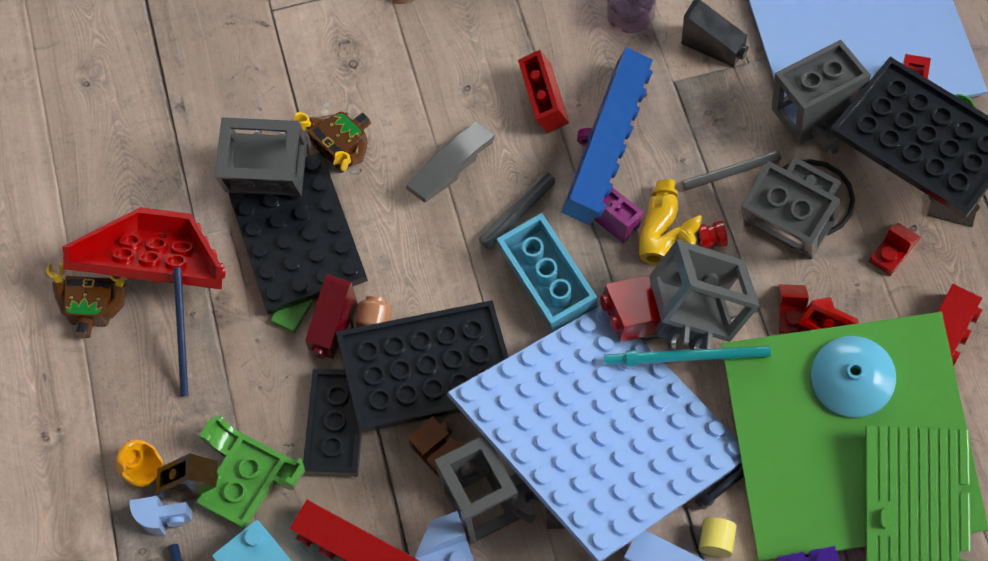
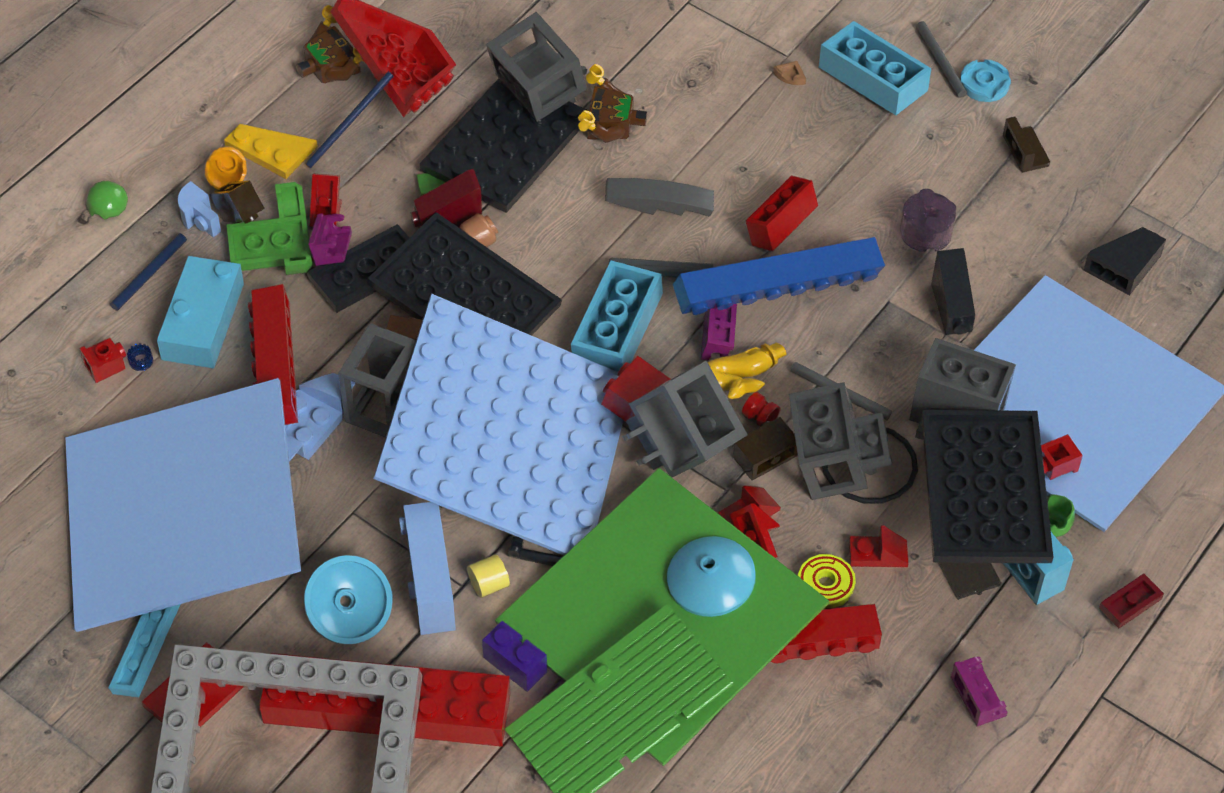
camera: 45 degrees right, 10 degrees down
(141, 413) = (271, 149): none -> yellow wing
(241, 408) = (324, 196): none -> red slope
(287, 430) = (328, 241): none -> magenta hinge
(632, 357) = (589, 415): teal bar -> none
(751, 246) = (765, 448): none -> dark brown brick
(895, 287) = (834, 568): none -> neon yellow tile

